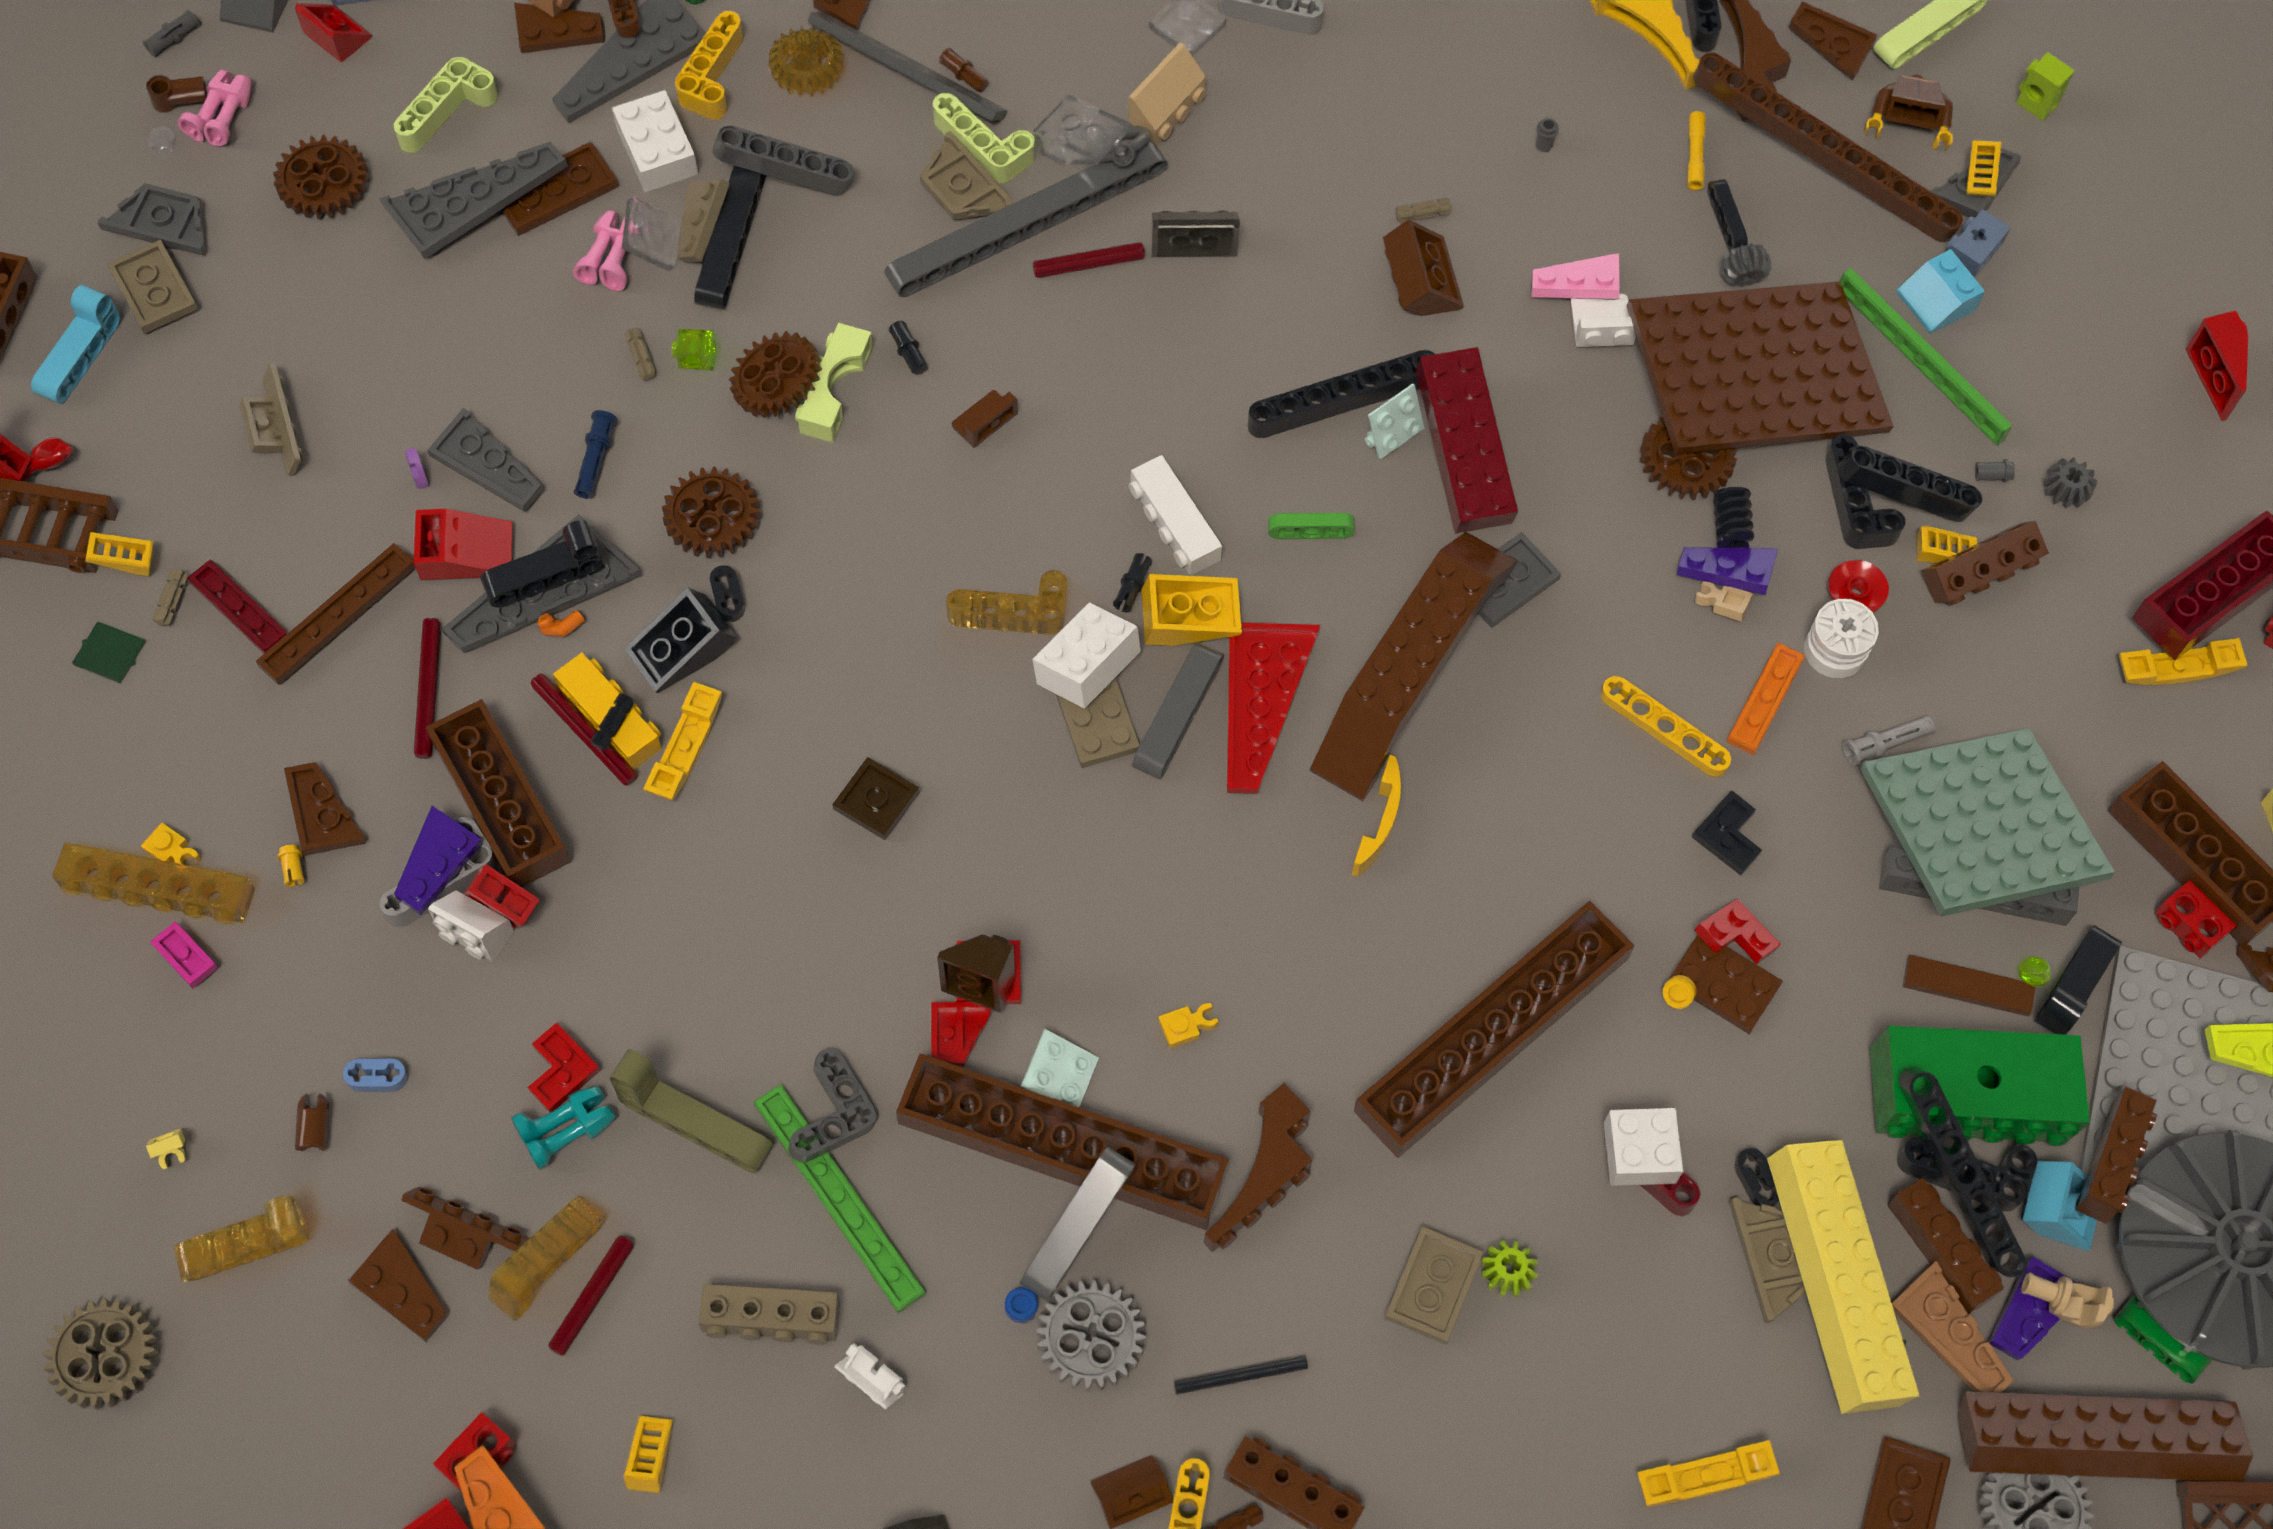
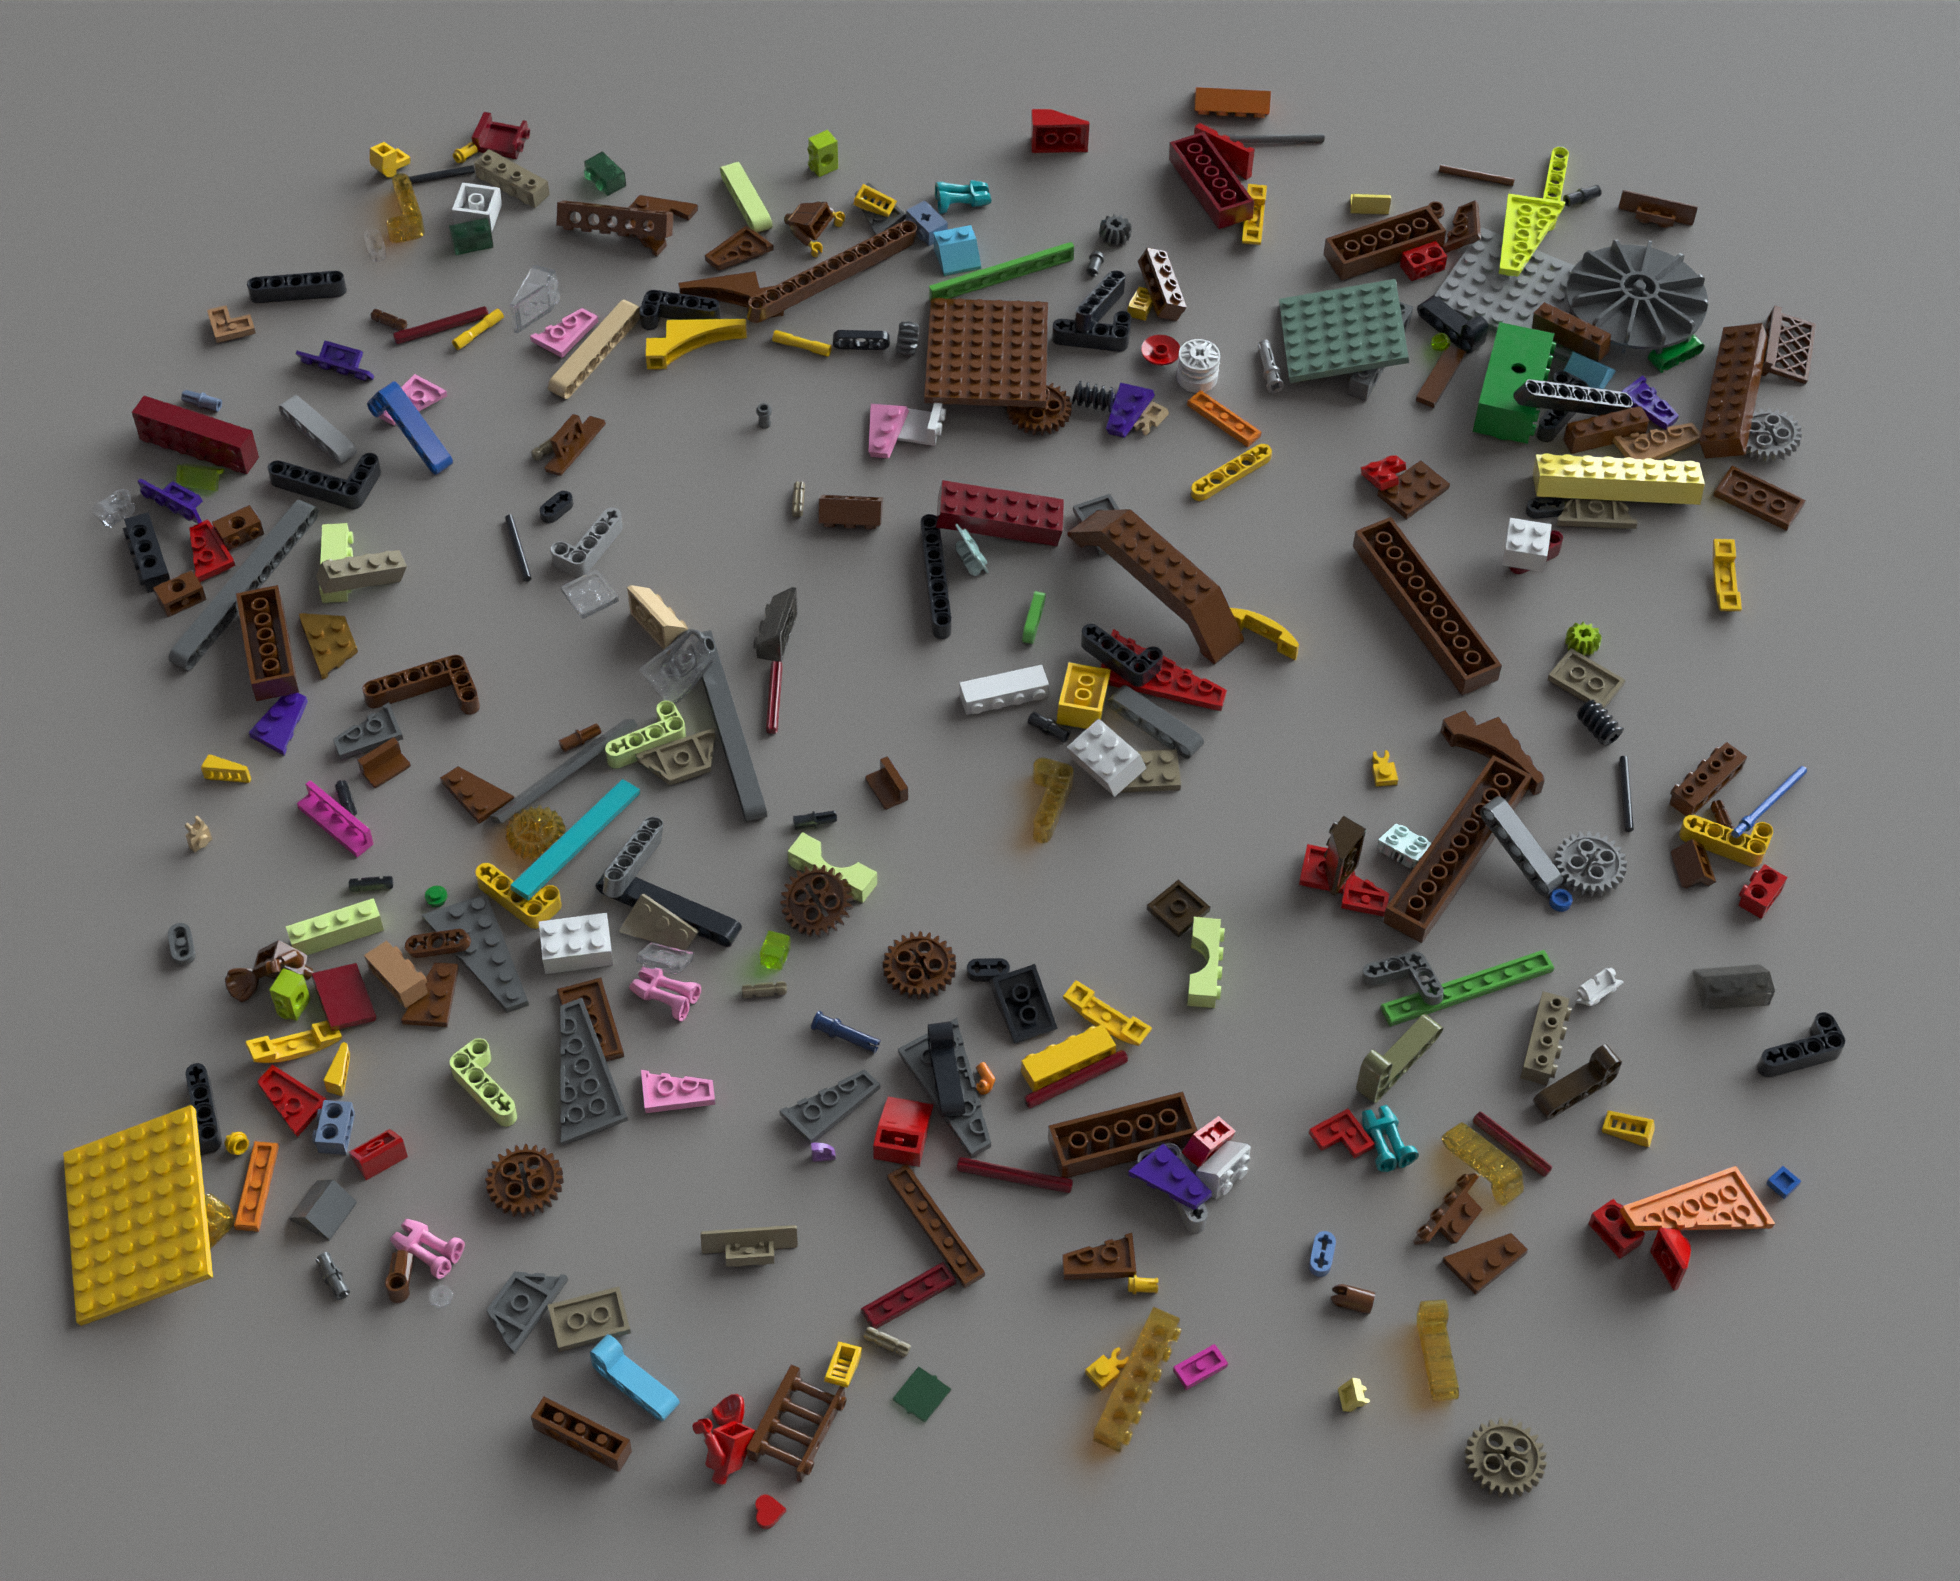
camera: 75 degrees left, 10 degrees down
(472, 295) = (674, 1093): none -> bright pink wing
(612, 721) = (1087, 1046): black axle -> none
(698, 1367) = (1579, 1084): none -> dark brown beam
(756, 853) = (1203, 984): none -> yellowish green arch
(802, 100) = (574, 839): none -> teal tile
(1268, 632) = (1132, 667): none -> black beam
(1351, 1313) = (1599, 723): none -> black piece
(1679, 991) = (1417, 511): yellow tile -> none
(1722, 837) = (1315, 463): black plate -> none
(2059, 294) = (975, 194): none -> teal piece
(2070, 1301) = (1653, 378): tan piece -> none

